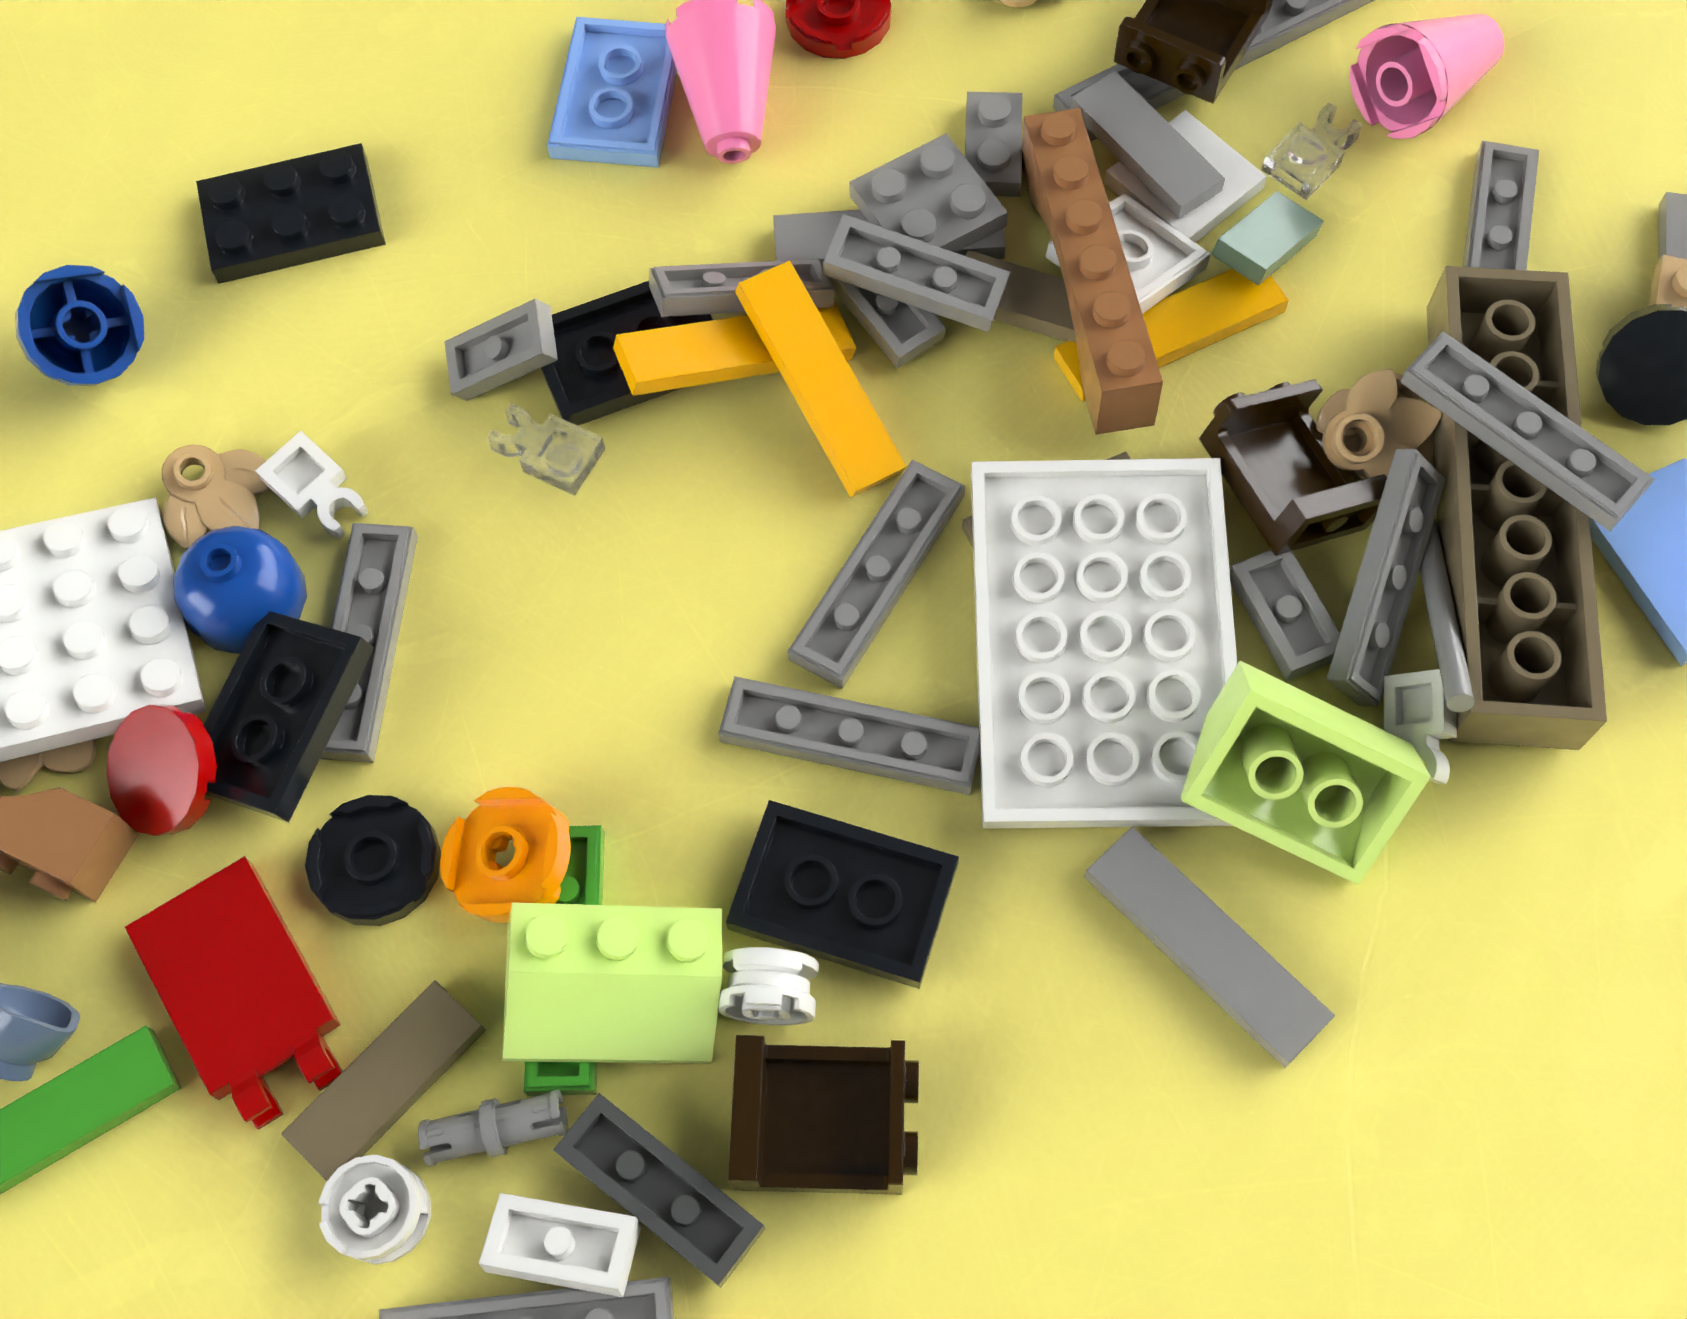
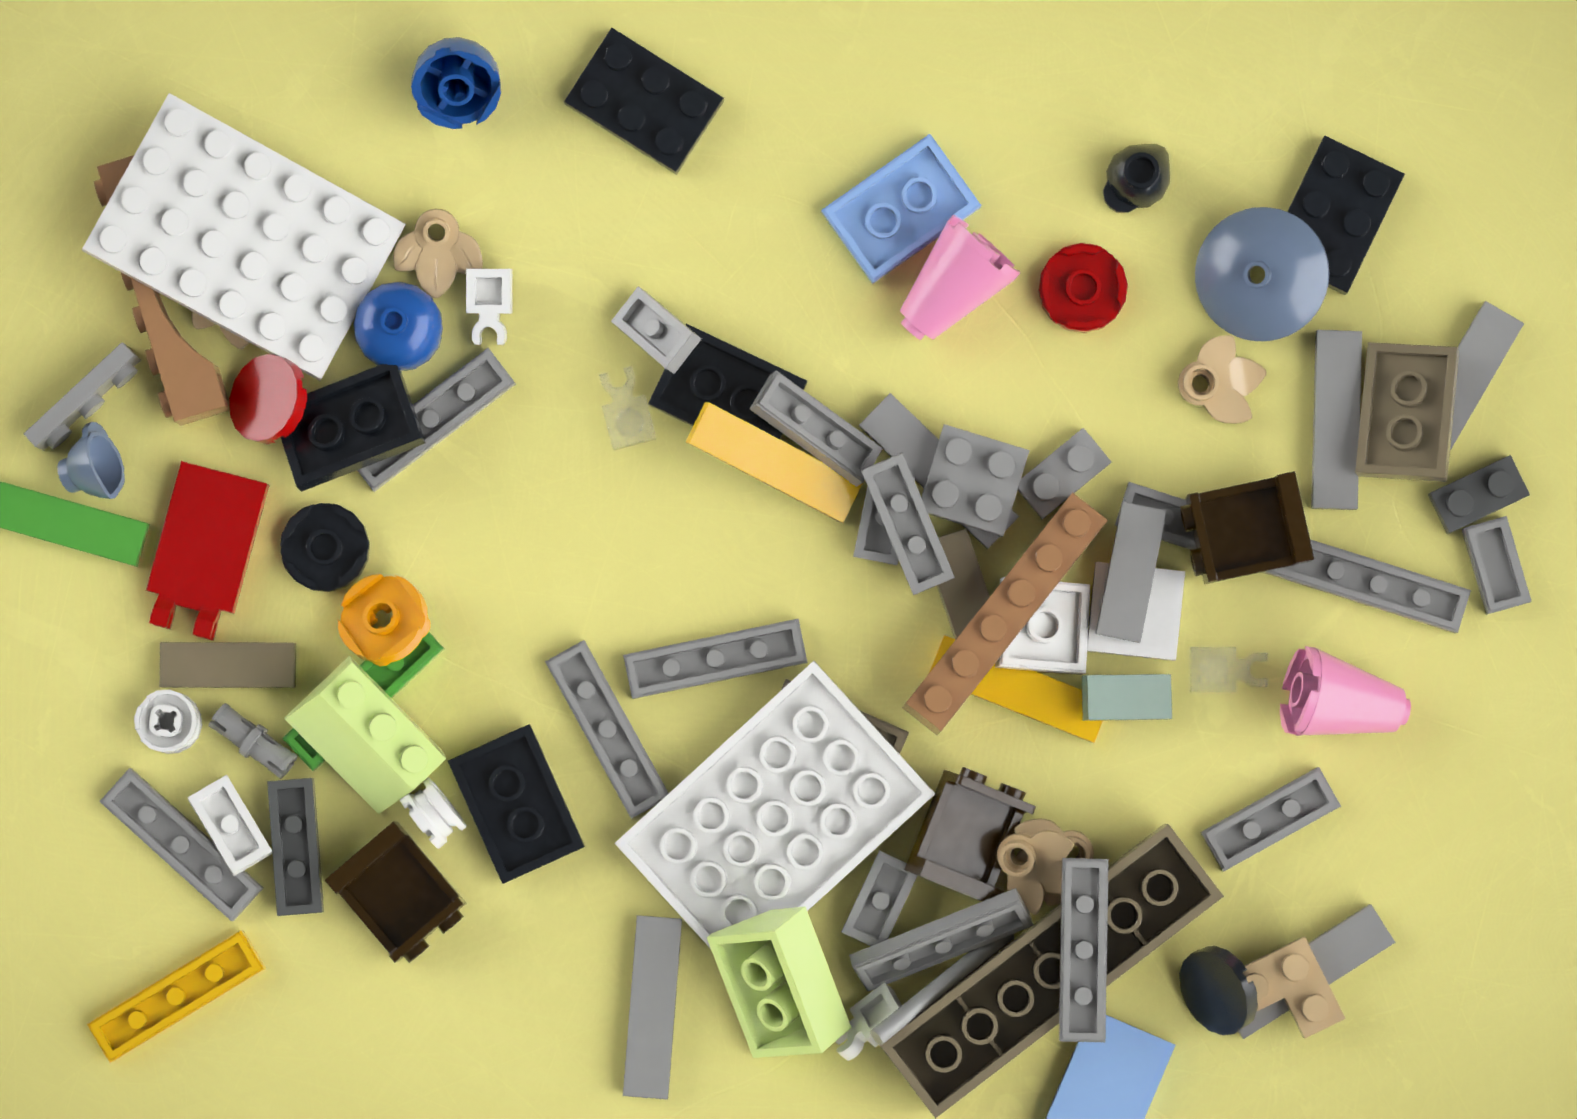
camera: 50 degrees right, 20 degrees up
(820, 378) = (795, 527): yellow tile -> none

